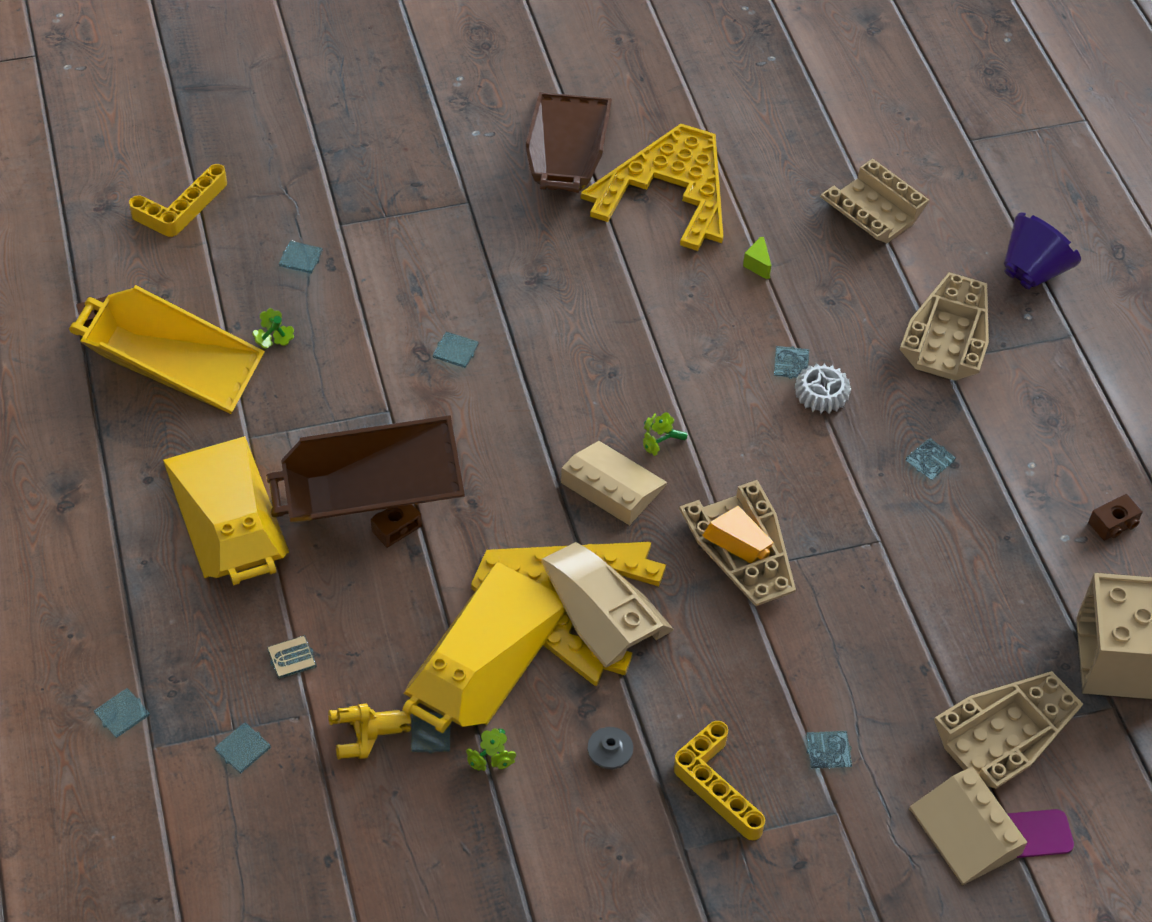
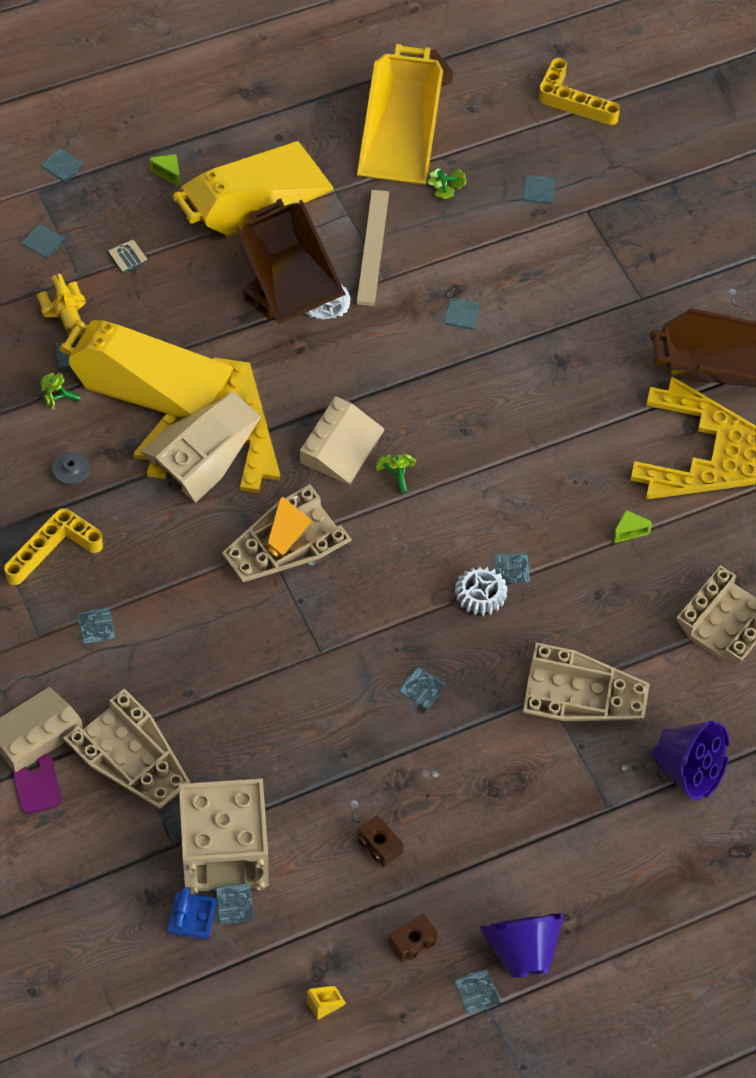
camera: 80 degrees right, 5 degrees up
(171, 592) = (166, 167): none -> lime slope
(329, 408) = (373, 248): none -> tan tile

